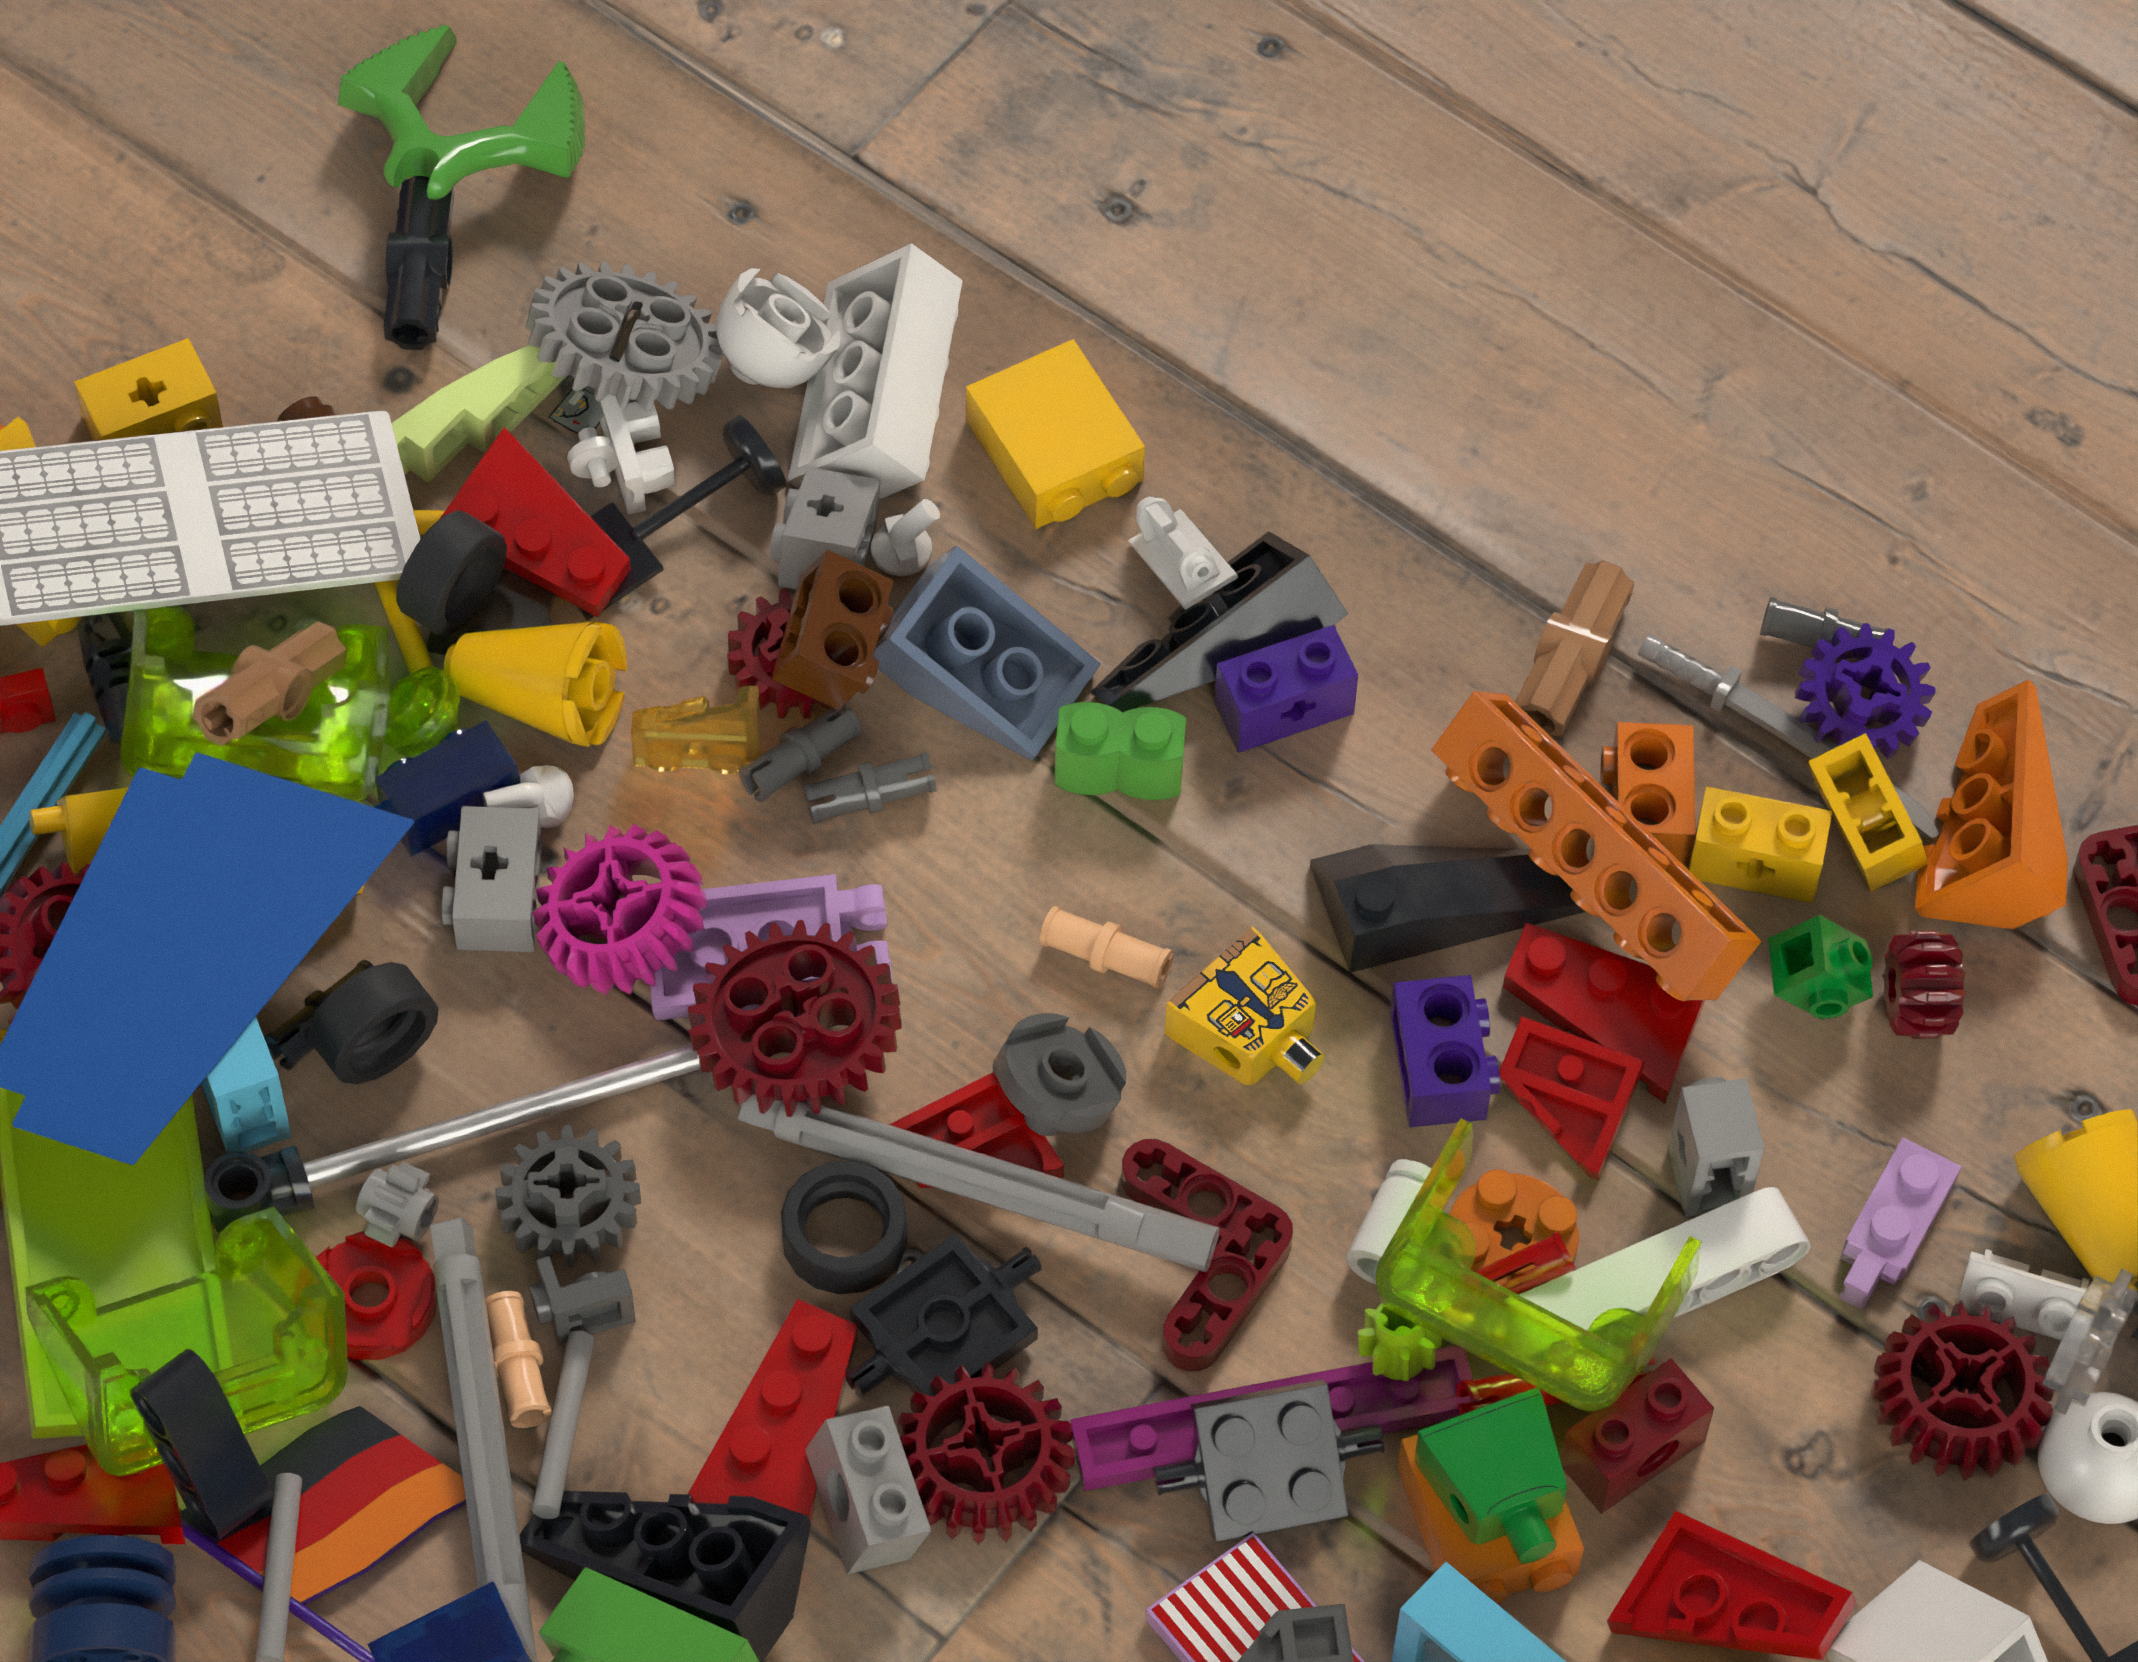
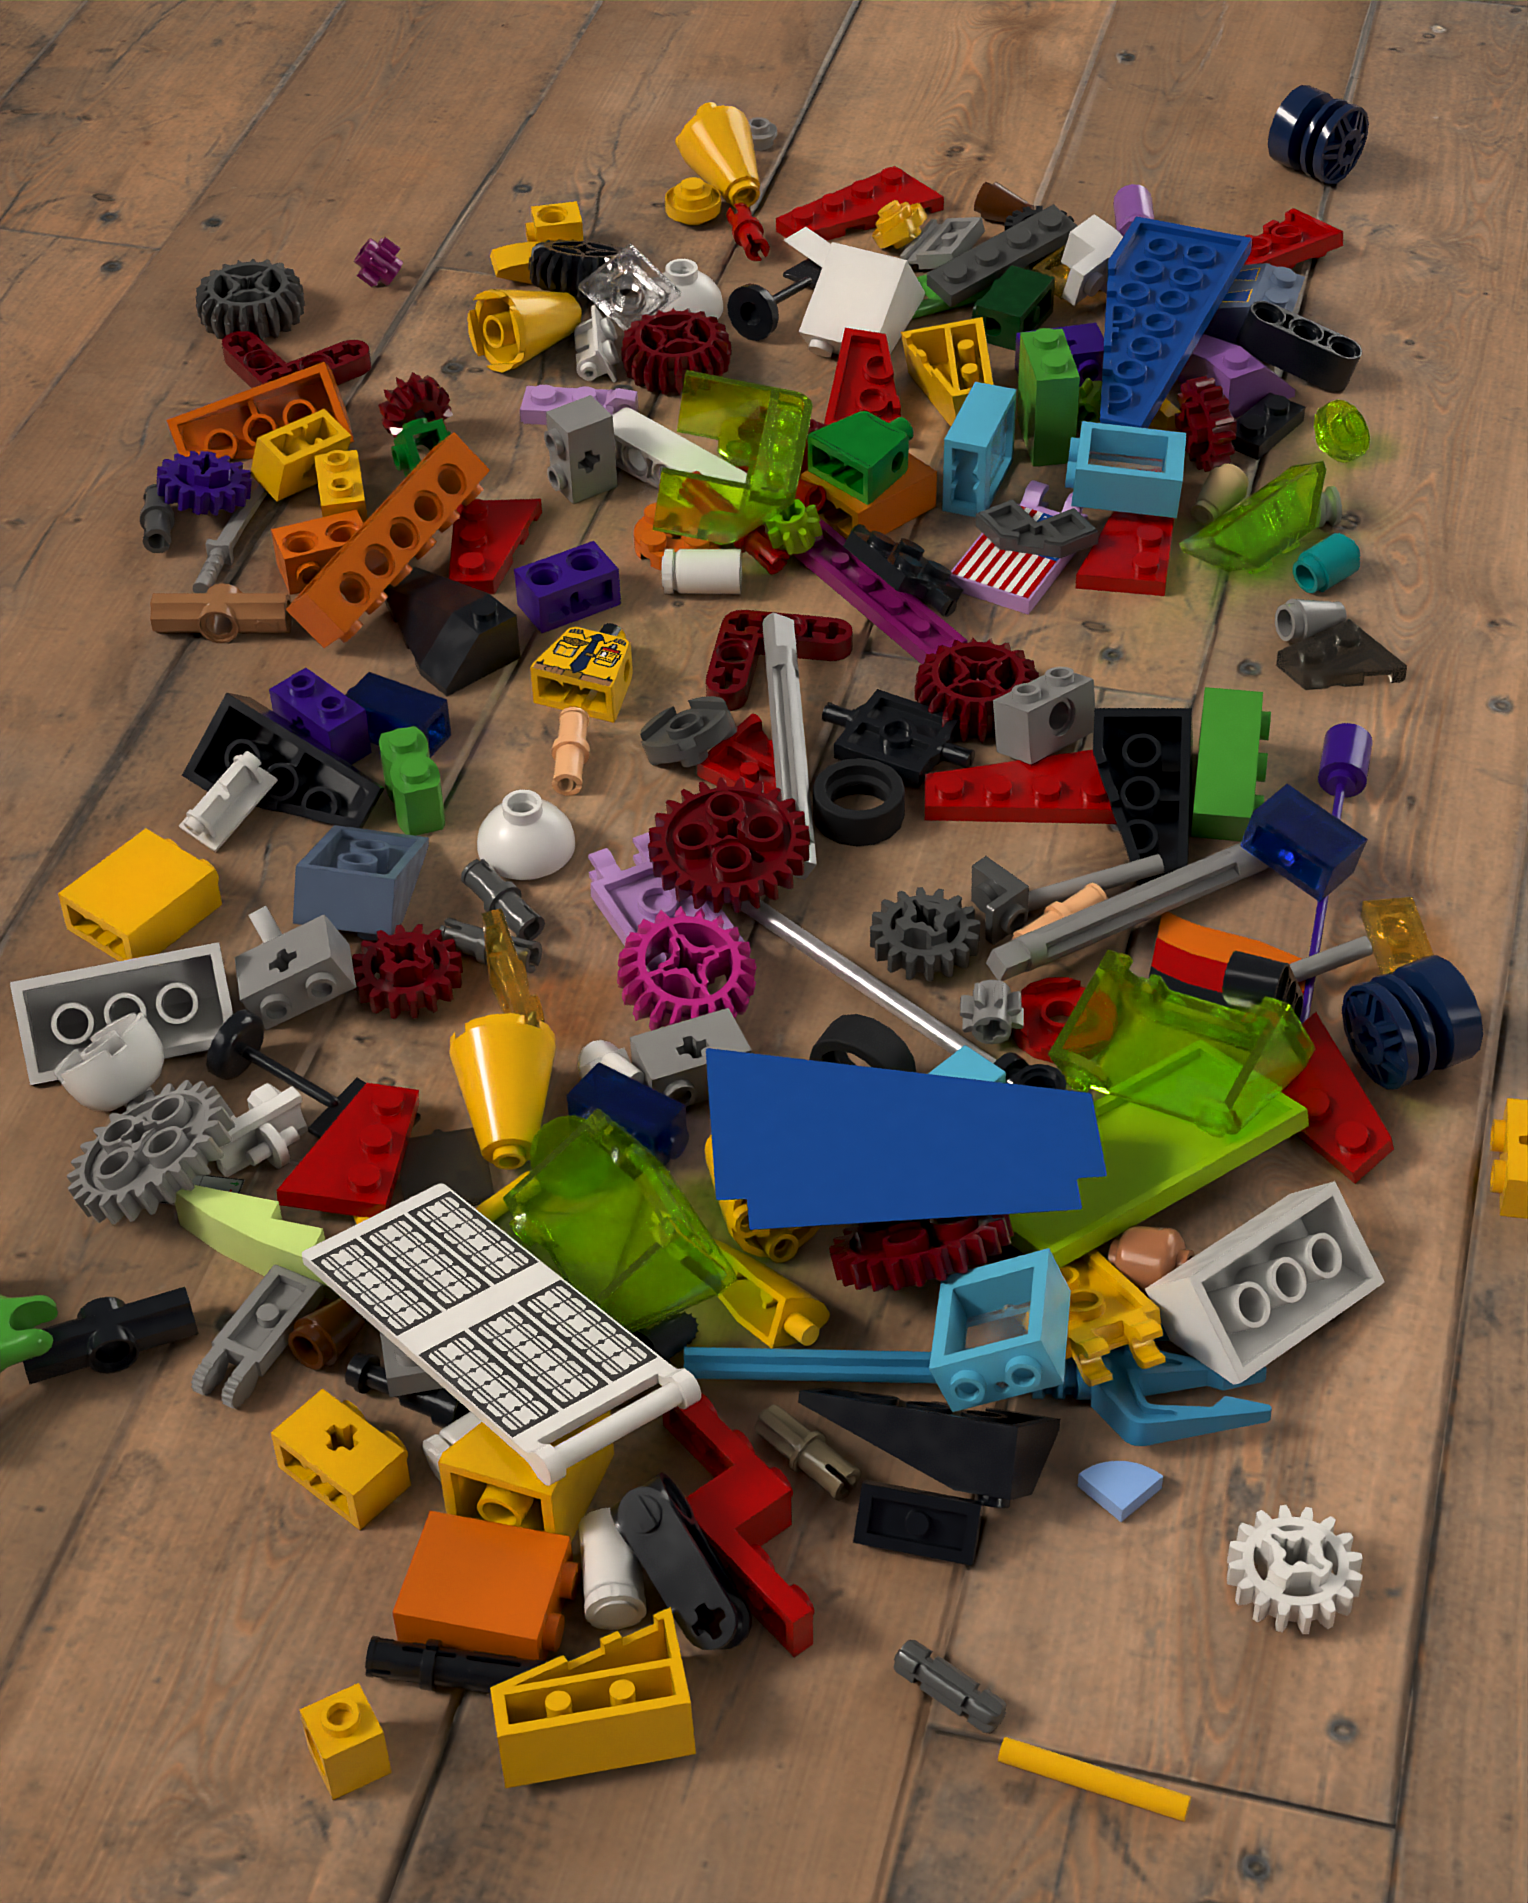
camera: 110 degrees left, 15 degrees down
(269, 683) = (612, 1210): medium nougat piece -> none
(344, 372) = (257, 1334): none -> light grey hinge
(451, 573) = (447, 1134): black tyre -> none
(825, 626) = (400, 911): reddish brown brick -> none
(961, 864) = (525, 837): none -> white piece
(1261, 776) = (397, 705): none -> clear blue brick
(1571, 1089) = (563, 526): red wing -> none

